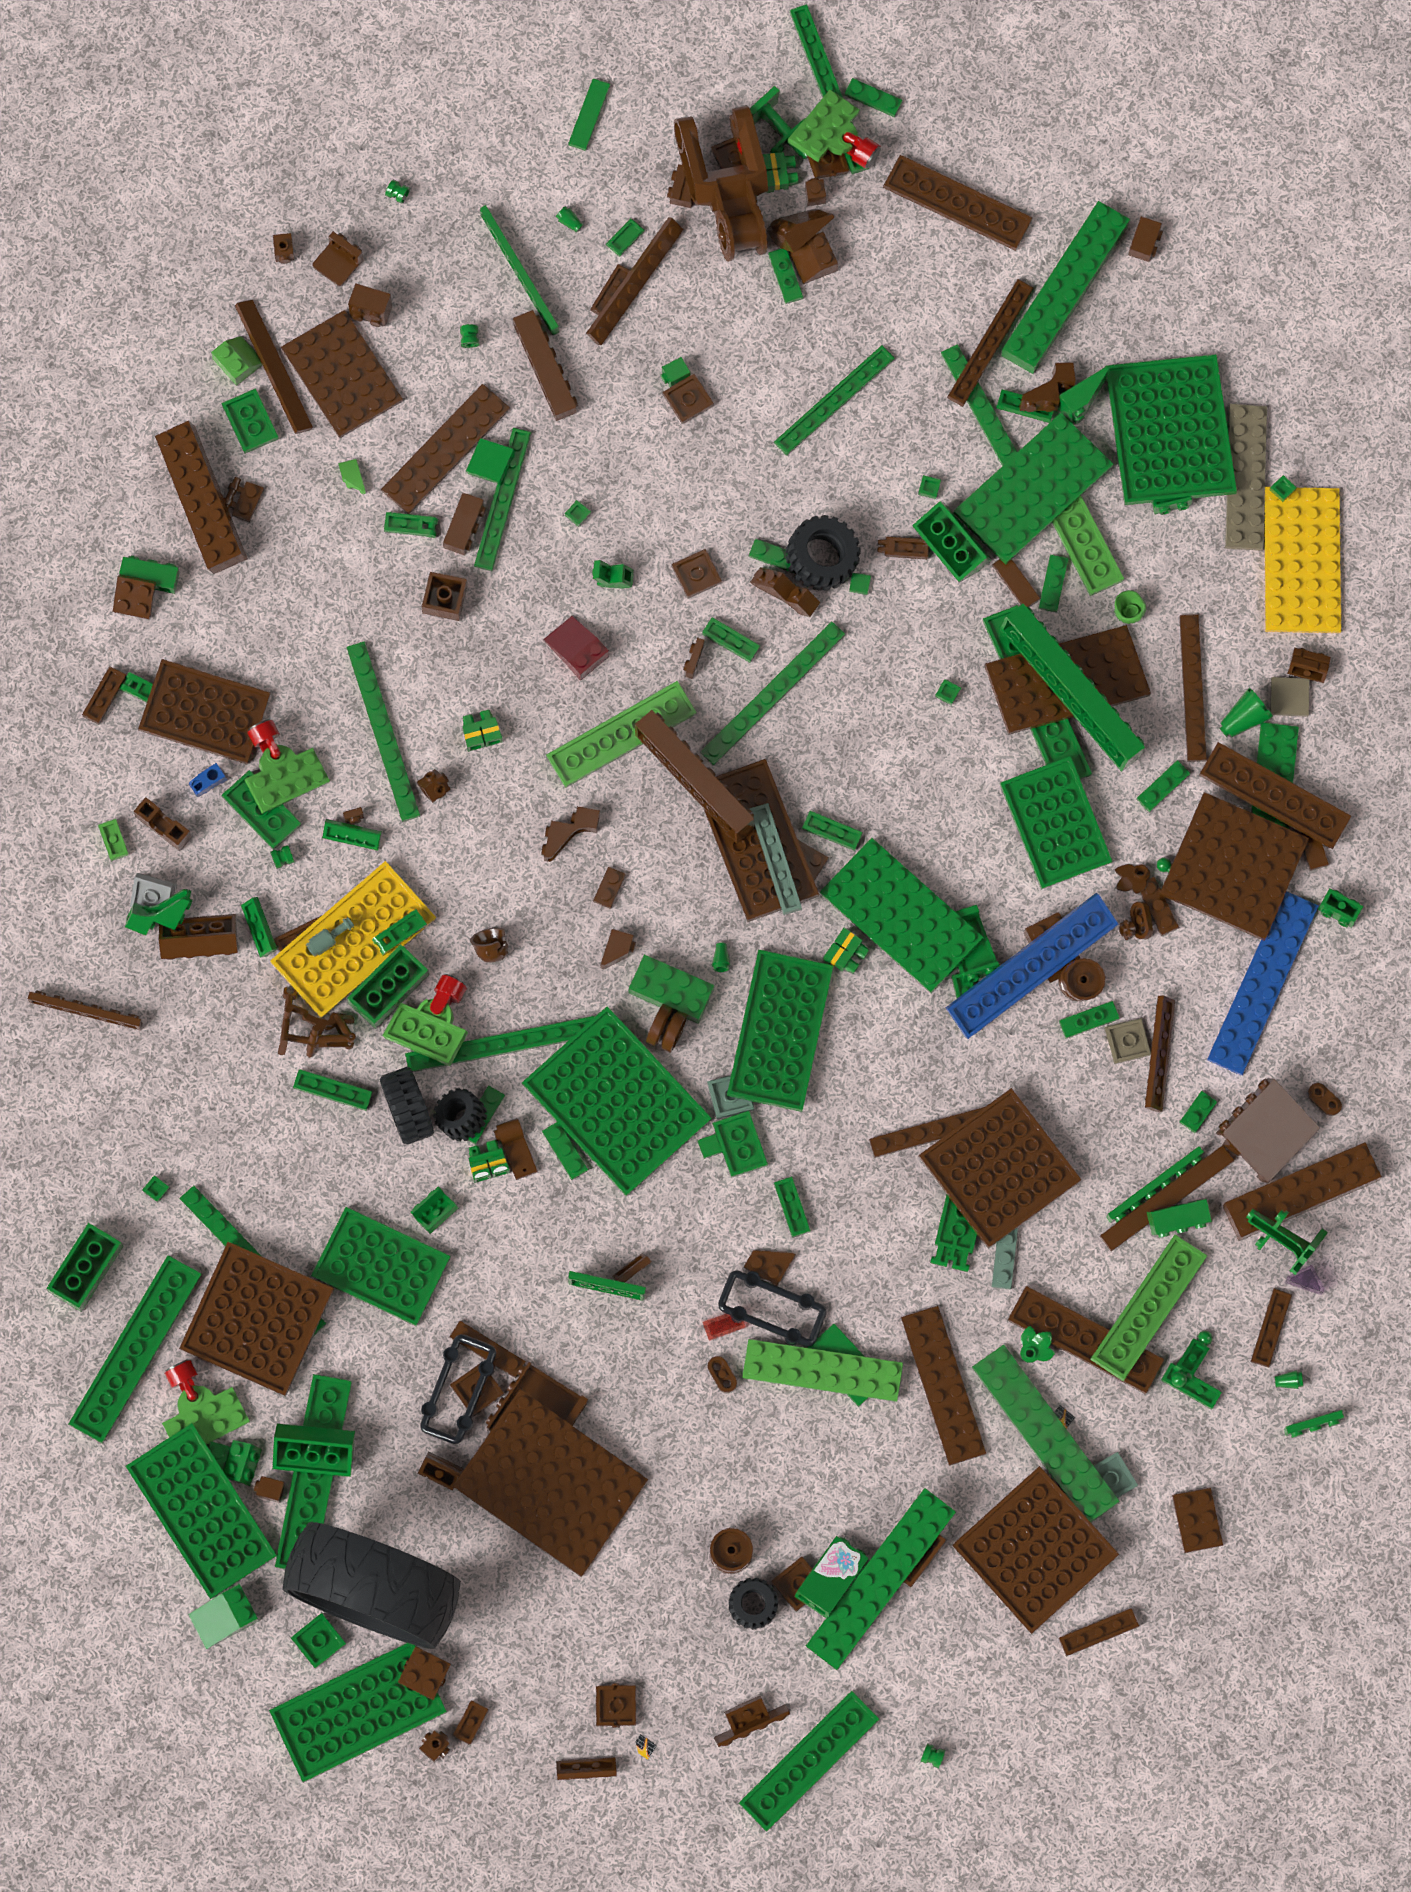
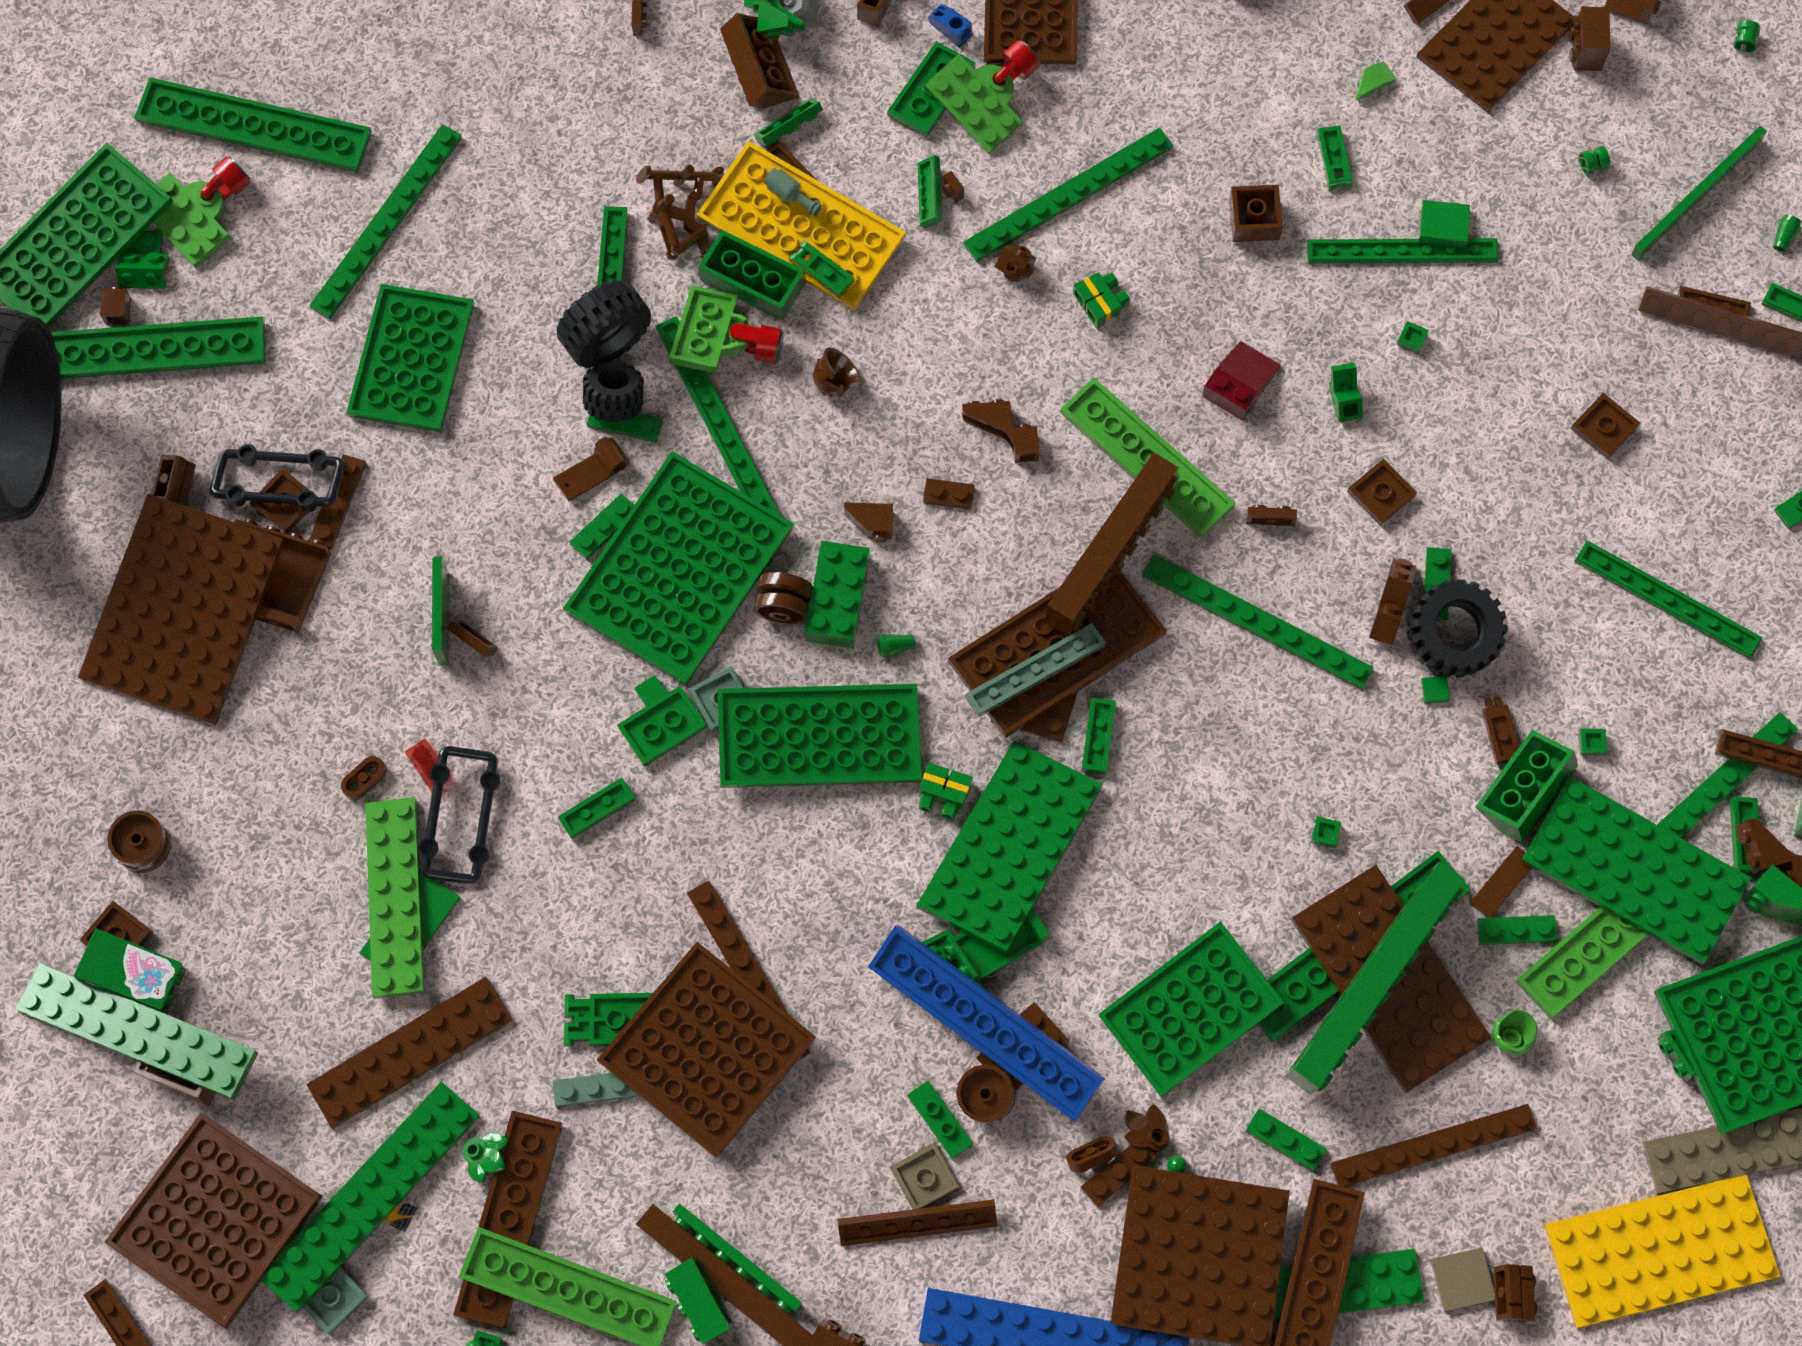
camera: 80 degrees right, 5 degrees down
(84, 1267) = (334, 45): green brick -> none
(155, 1189) = (447, 96): green plate -> none
(256, 1318) = (314, 238): reddish brown plate -> none
(280, 857) = (879, 123): green wheel -> none
(313, 1450) = (168, 335): green slope -> none
(434, 1210) = (492, 396): green bracket -> none
(445, 449) = (1443, 172): reddish brown plate -> none
(464, 524) = (1354, 213): reddish brown brick -> none
(494, 1157) = (563, 442): green hips -> none
(544, 365) = (1588, 251): reddish brown brick -> none
(674, 372) = (1634, 399): green brick -> none
(731, 640) = (1309, 553): green plate -> none
(745, 1619) = (90, 900): black tyre -> none
(769, 1264) = (516, 800): reddish brown wing -> none
(1127, 929) = (1074, 1138): reddish brown plate -> none
(1198, 1112) = (852, 1294): green plate -> none
(1245, 714) = (1417, 1223): green cone -> none
(1282, 488) = (1751, 1196): green plate -> none

